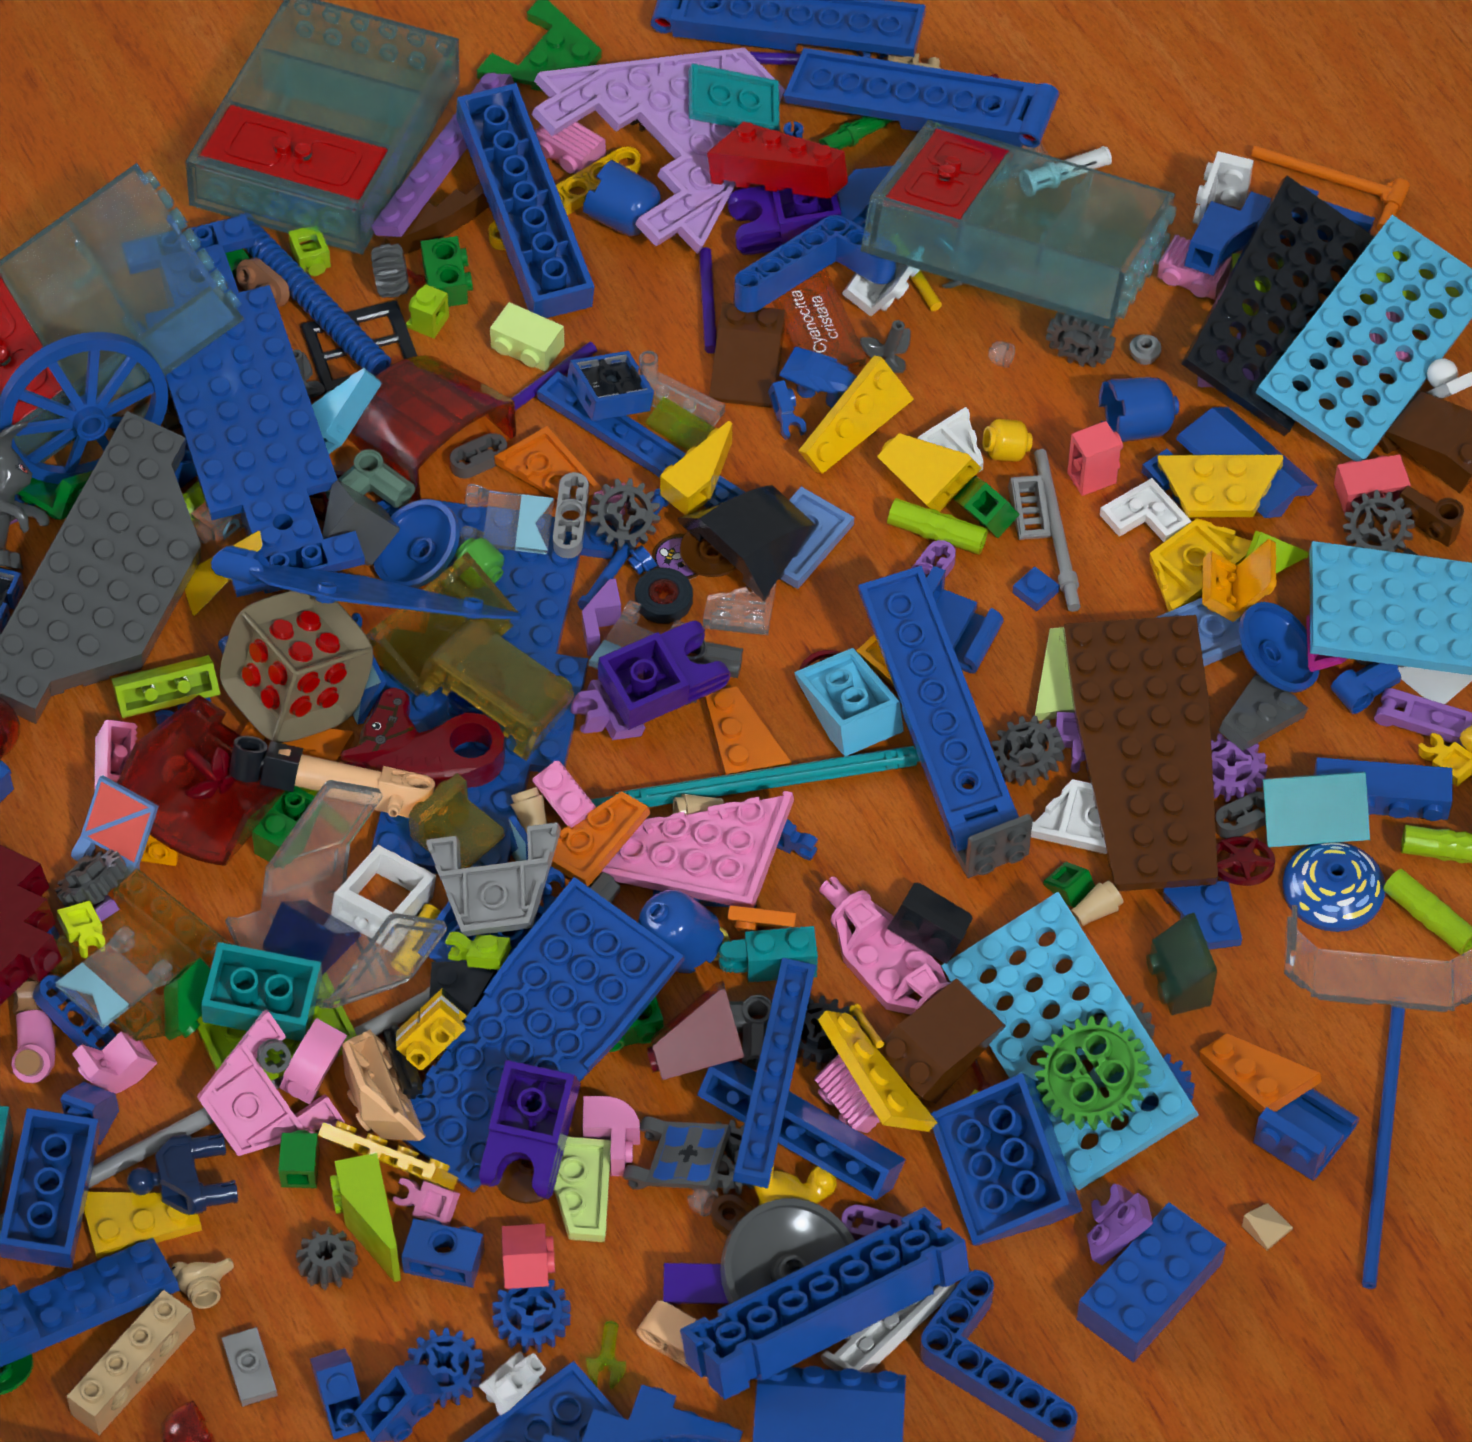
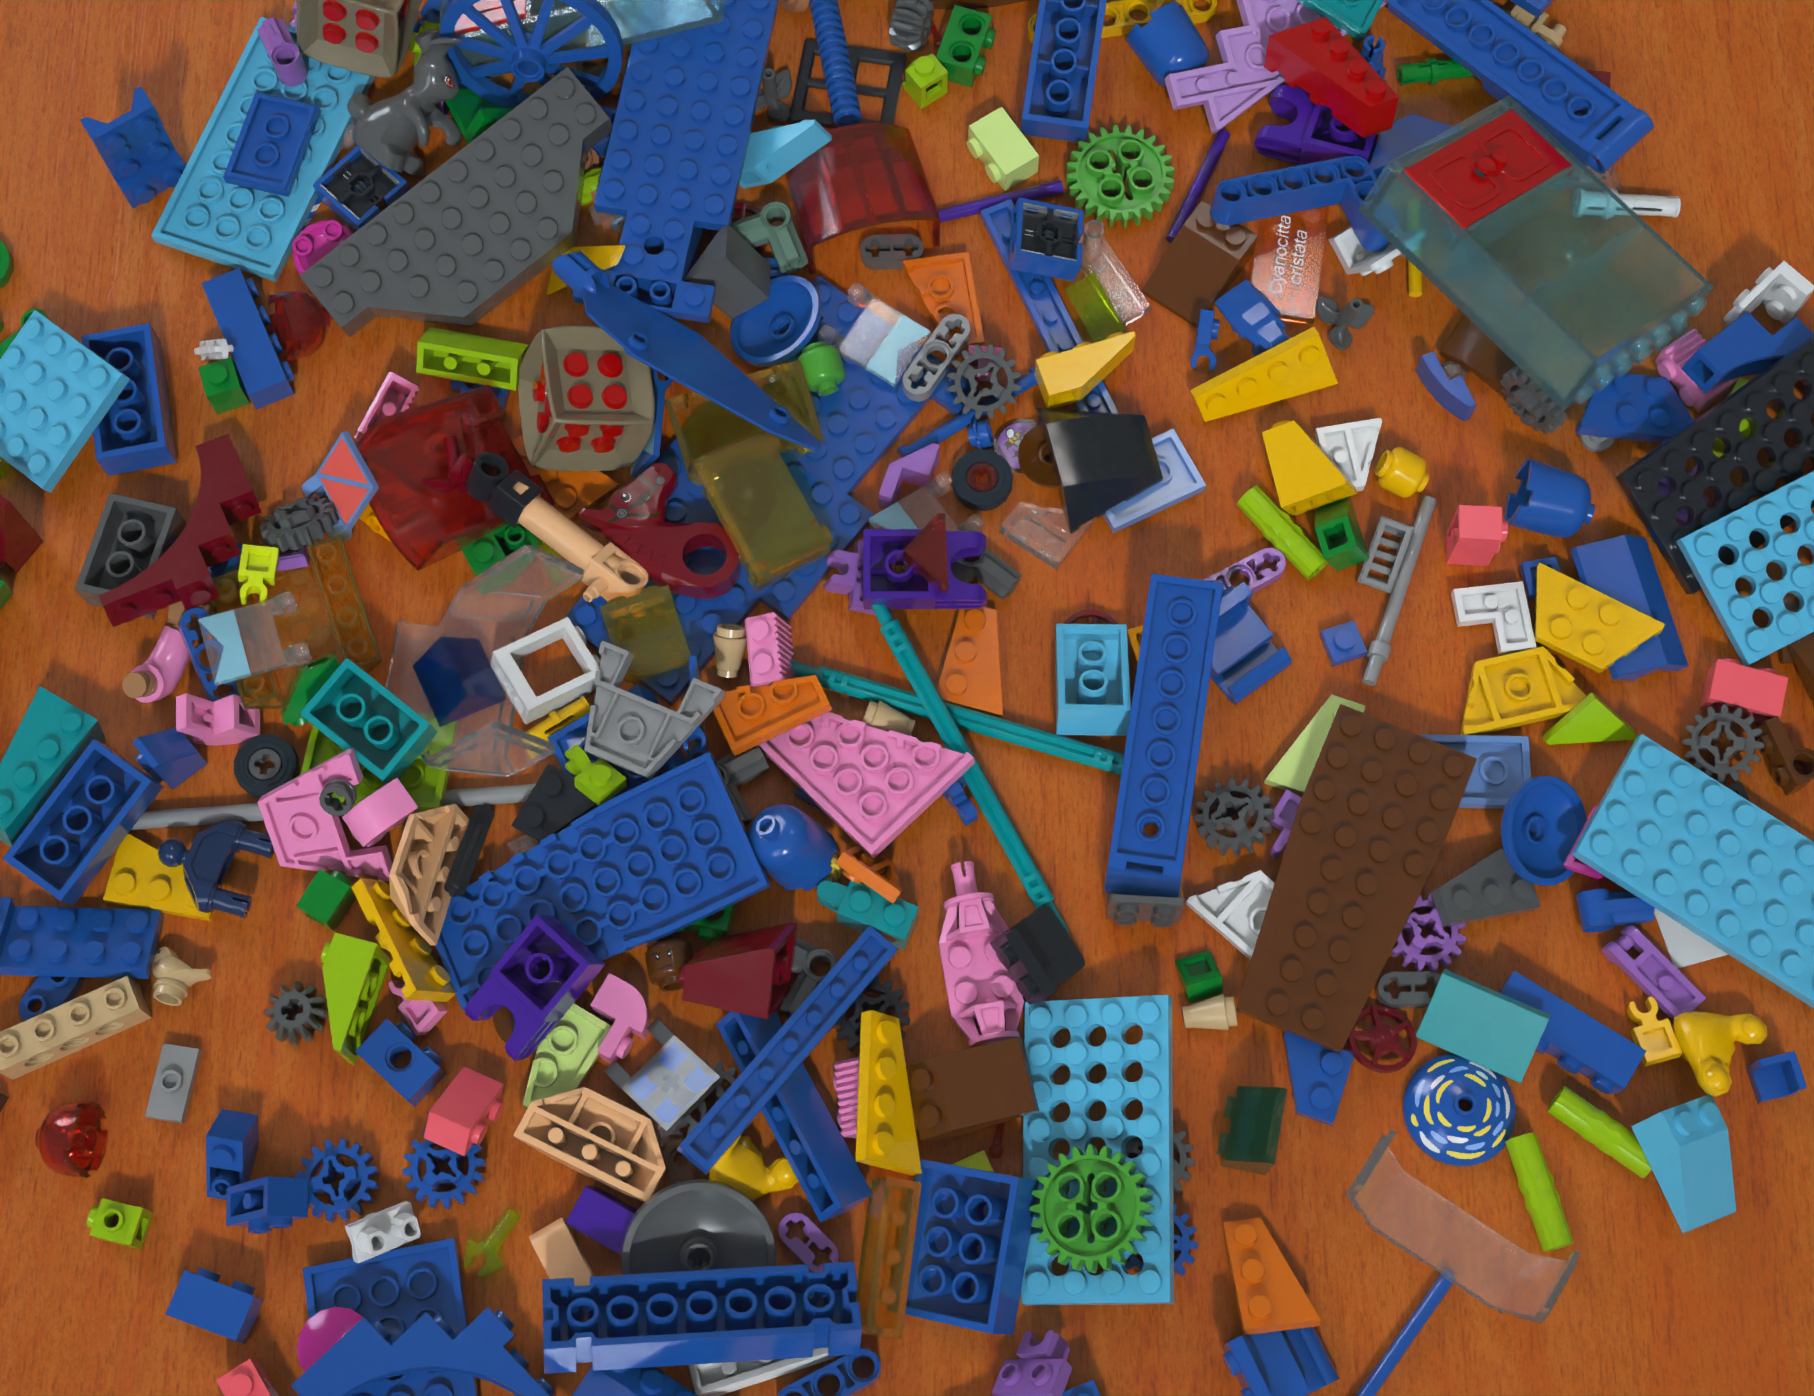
camera: 30 degrees right, 15 degrees up
(91, 1347) = (50, 993): none -> blue plate
(165, 1096) = (256, 752): none -> black bush
(431, 1029) = (502, 837): yellow hips -> none
(628, 1070) = (666, 960): none -> reddish brown head
(639, 316) = (1148, 168): none -> bright green gear
(653, 1228) = (596, 1140): none -> light nougat wedge
(670, 649) = (929, 553): none -> clear red slope
(798, 815) = (974, 777): none -> teal axle
(856, 1010) = (914, 1033): yellow piece -> none
(945, 1192) = (887, 1256): none -> clear yellow brick
(1011, 367) = (1449, 393): none -> blue slope
(1015, 322) = (1477, 353): none -> reddish brown slope
(1164, 316) = (1635, 410): none -> blue wing
(1235, 588) = (1537, 744): light orange bracket -> none

